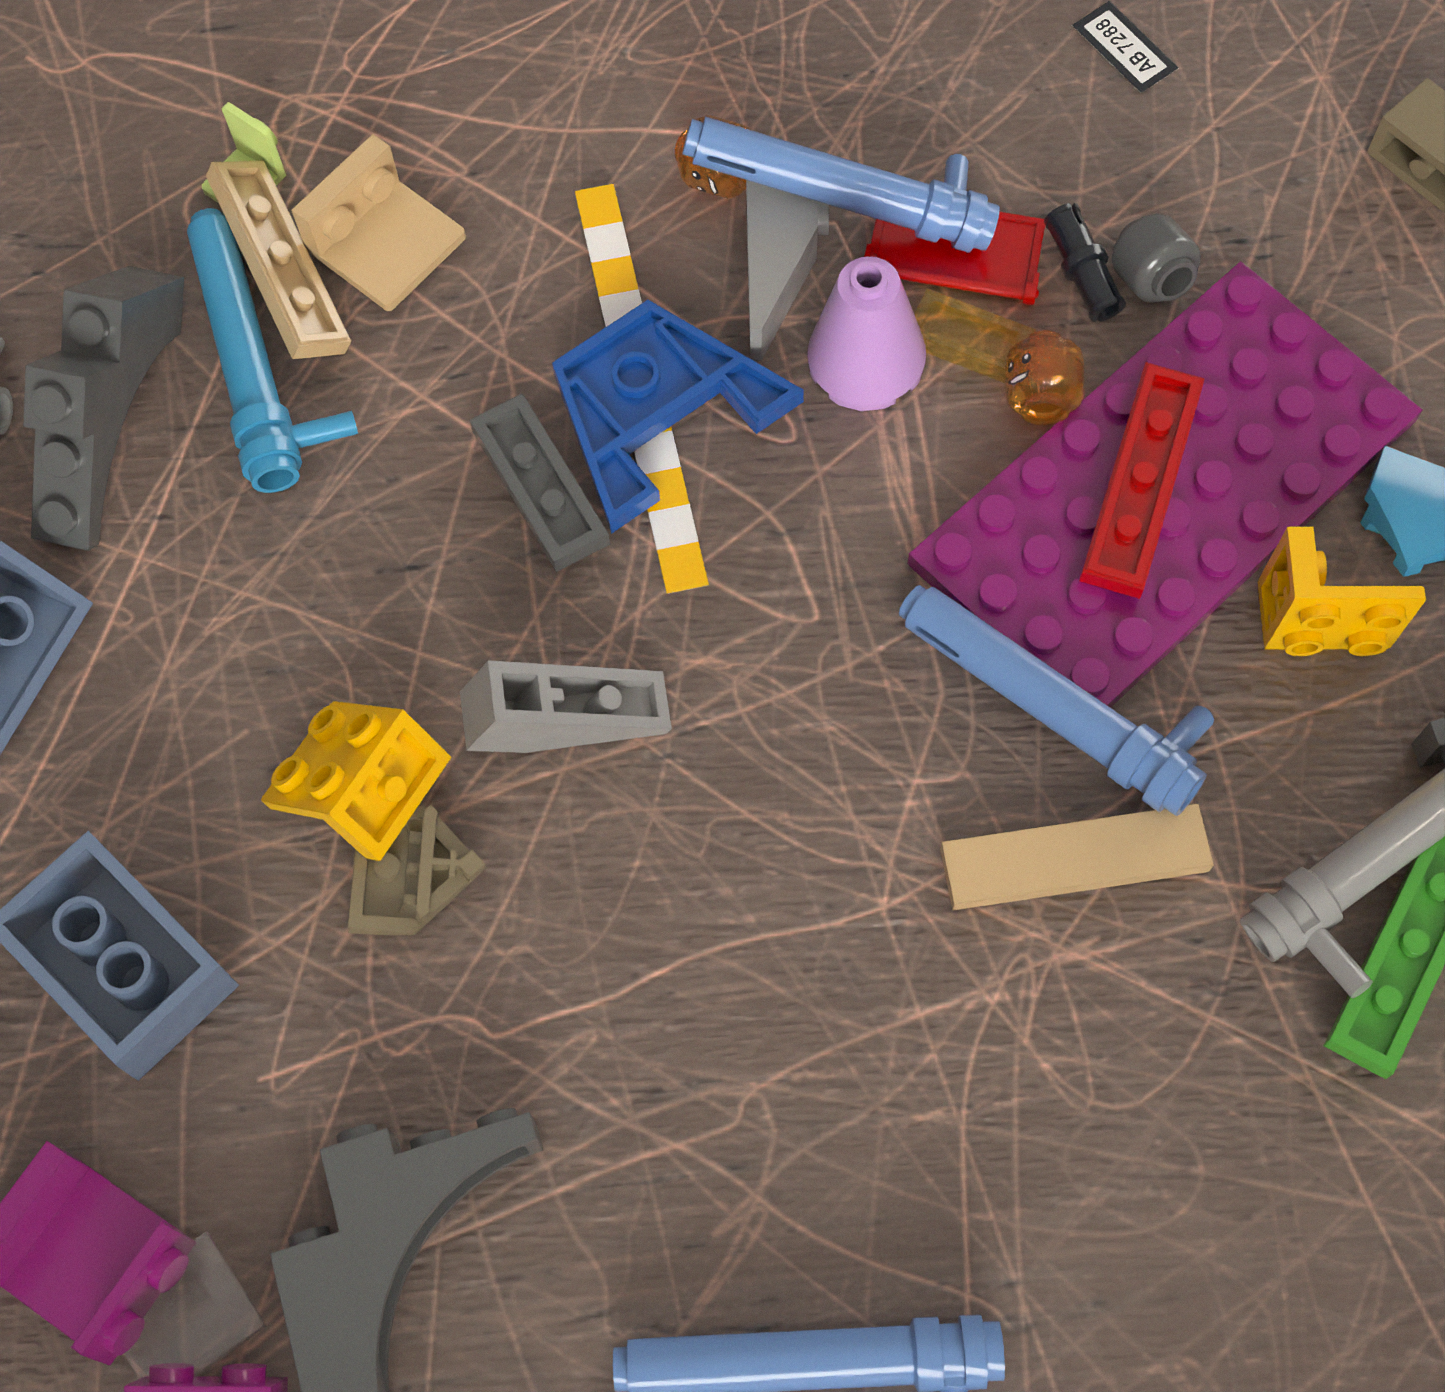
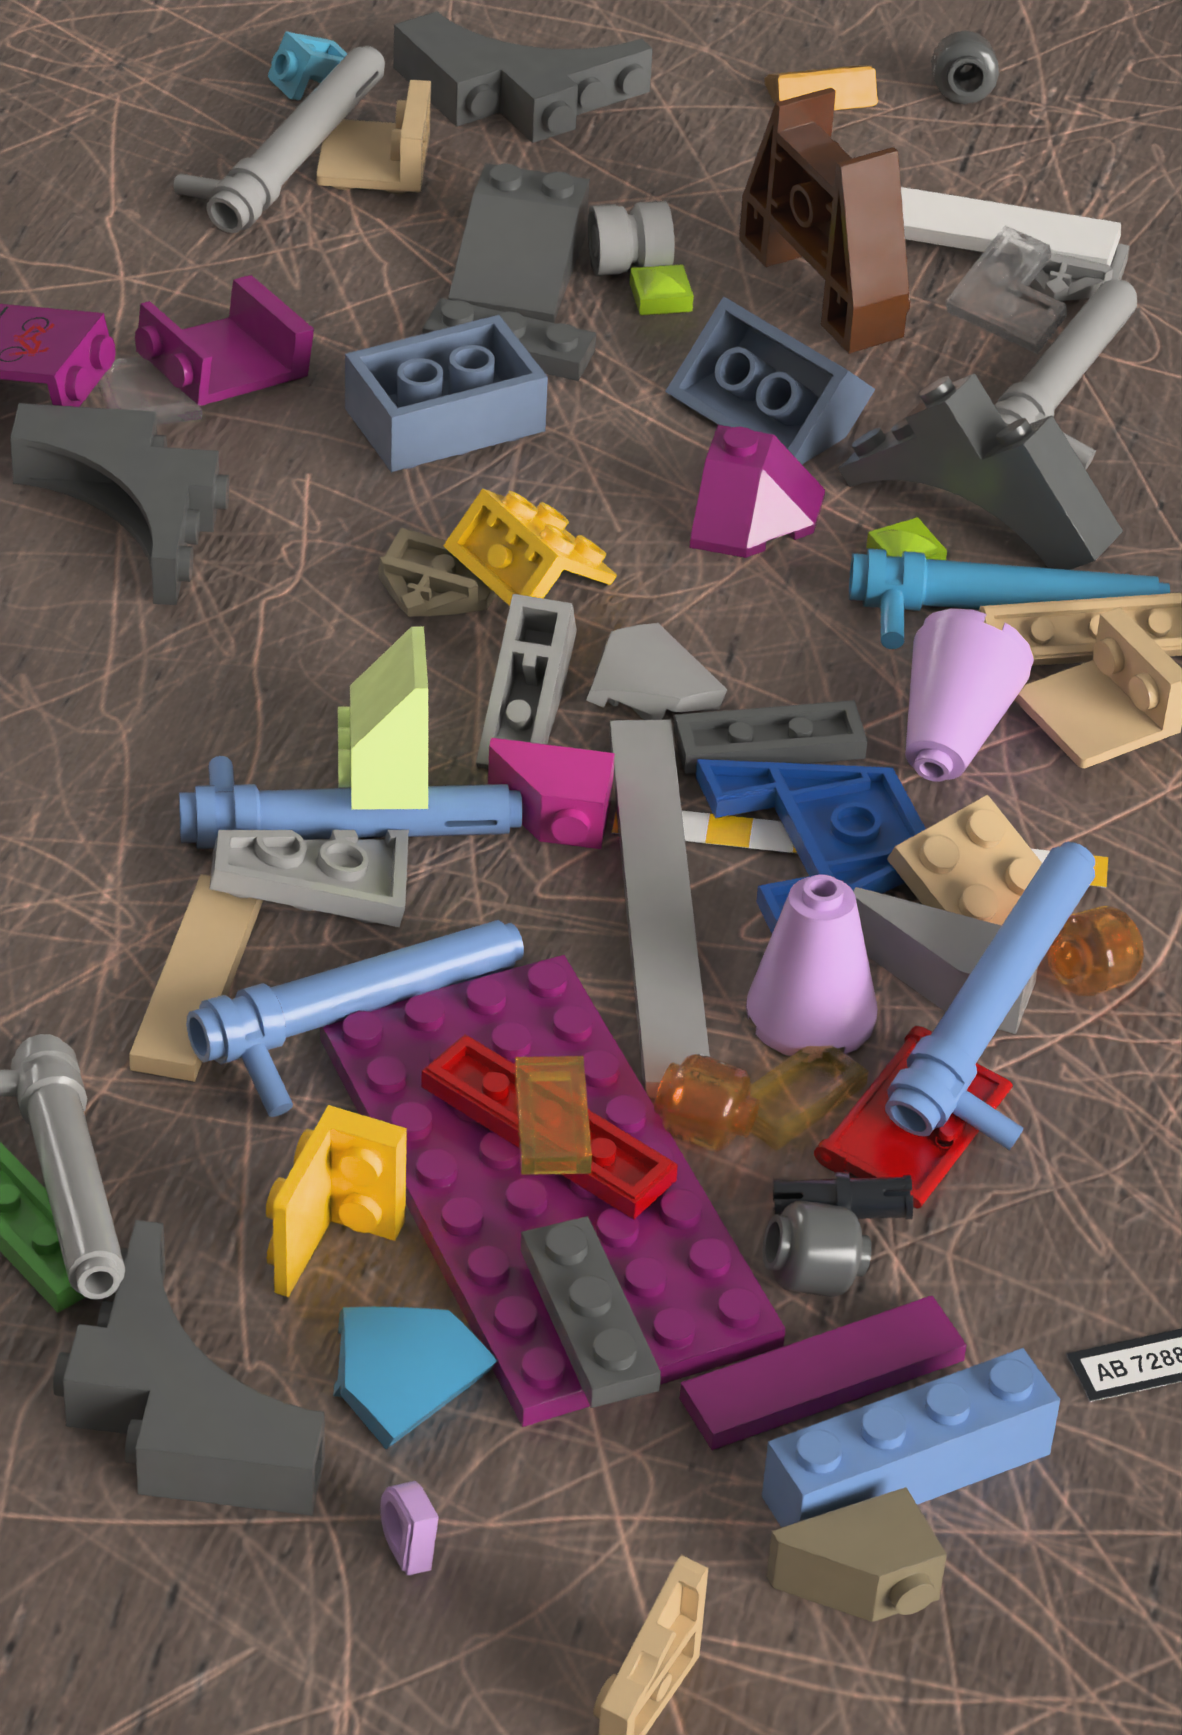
camera: 105 degrees right, 25 degrees down
(174, 613) = (752, 494): none -> magenta slope
(197, 456) = (908, 537): none -> lime tile
(443, 330) = (960, 689): none -> lavender cone
(486, 612) = (652, 674): none -> light grey slope
(663, 265) = (968, 863): none -> tan plate
(704, 626) = (561, 789): none -> dark pink slope
(728, 771) = (387, 730): none -> yellowish green slope
(792, 508) = (657, 897): none -> light grey tile
(855, 890) = (316, 812): none -> medium blue cylinder
(911, 790) = (329, 876): none -> light grey wing
(1158, 458) = (552, 1115): none -> clear yellow tile
(1259, 232) = (822, 1372): none -> magenta tile
(1321, 141) = (917, 1439): none -> medium blue brick
(1324, 380) = (590, 1312): none -> dark grey plate

